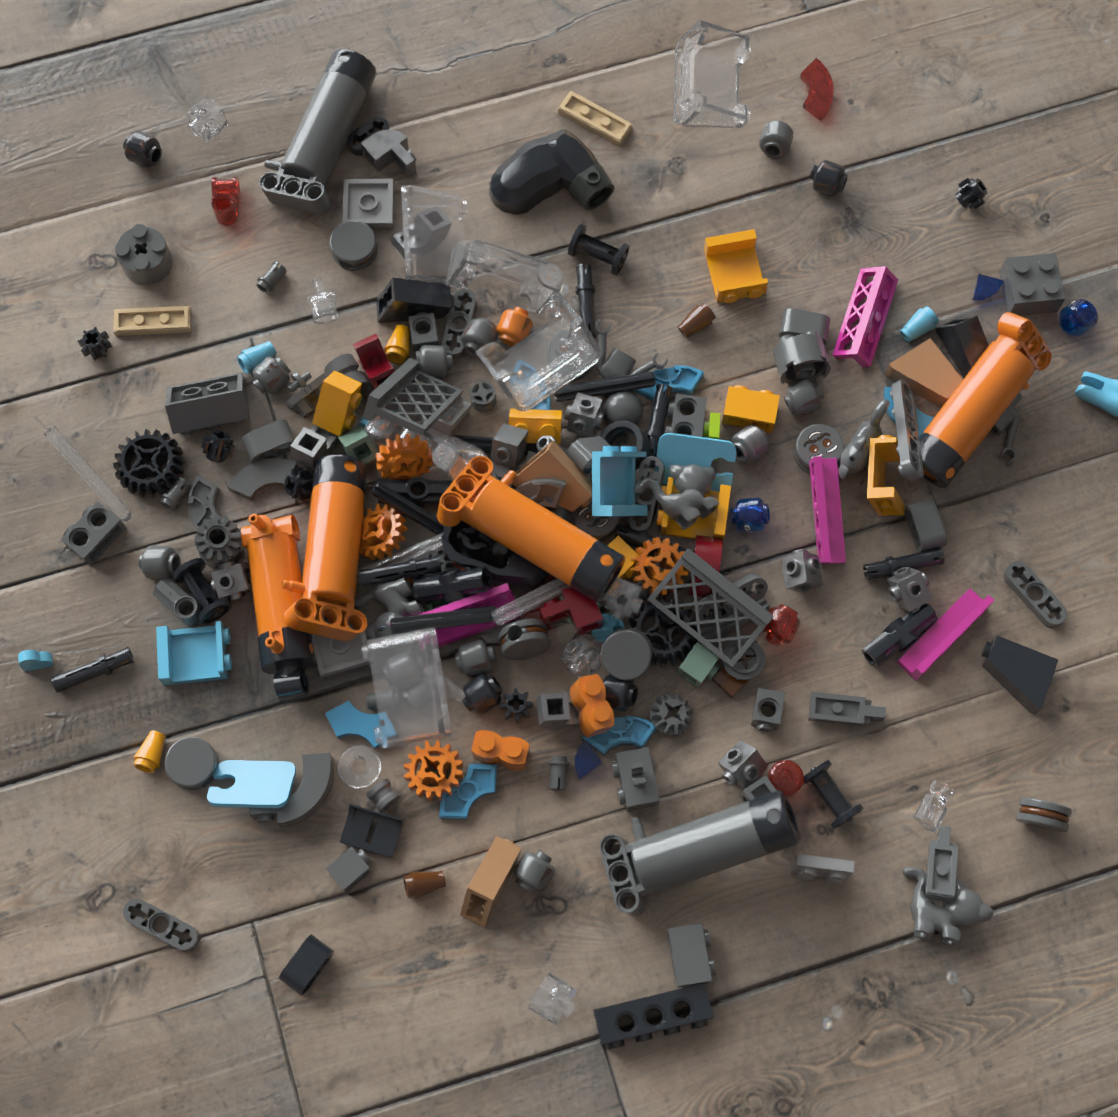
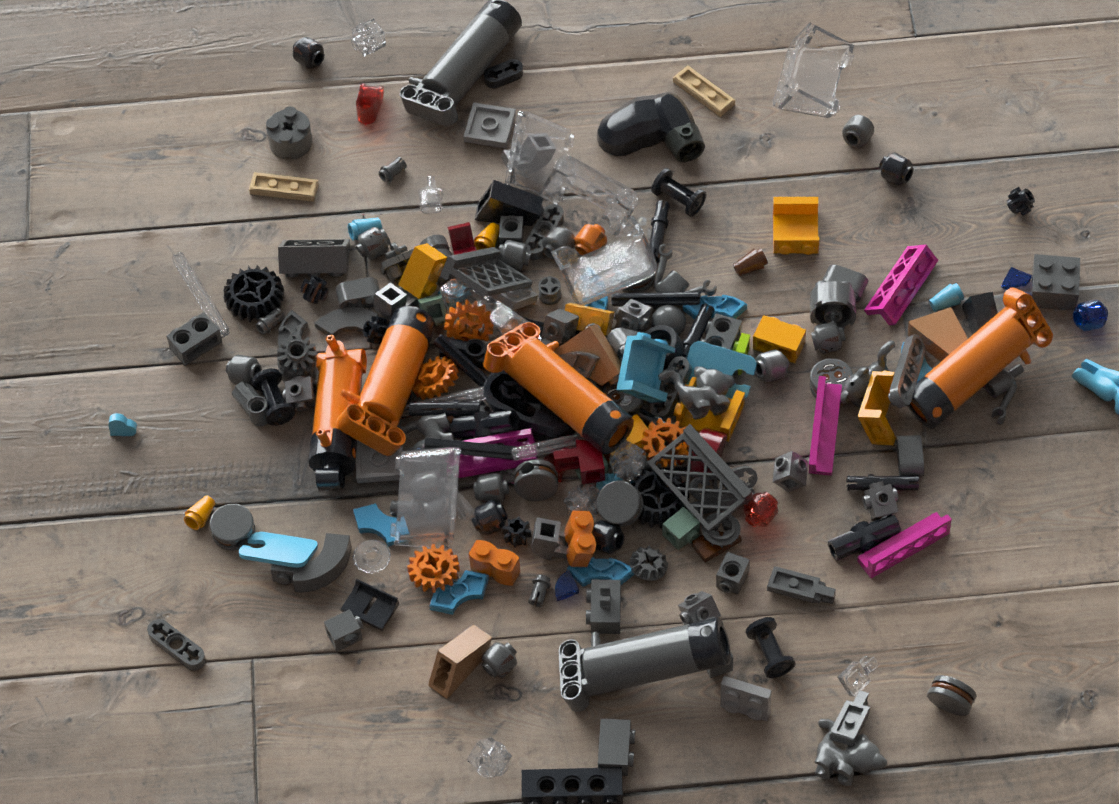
camera: 15 degrees right, 15 degrees down
(90, 338) = (231, 195): black gear -> none
(93, 669) = (177, 440): black pin -> none
(193, 654) = (254, 445): medium azure panel -> none
(306, 964) = (289, 695): black beam -> none
(353, 245) = (468, 155): dark grey head -> none
(383, 795) = (386, 579): flat silver wheel -> none
(389, 147) = (517, 84): flat silver brick -> none
(422, 883) = (402, 652): reddish brown cone -> none
(750, 514) = (757, 420): clear blue head -> none
(791, 772) = (736, 626): clear red head -> none
(819, 89) = (908, 98): clear red tile -> none
(1020, 671) = (963, 583): black slope -> none
(1054, 603) = (993, 538): dark grey beam -> none

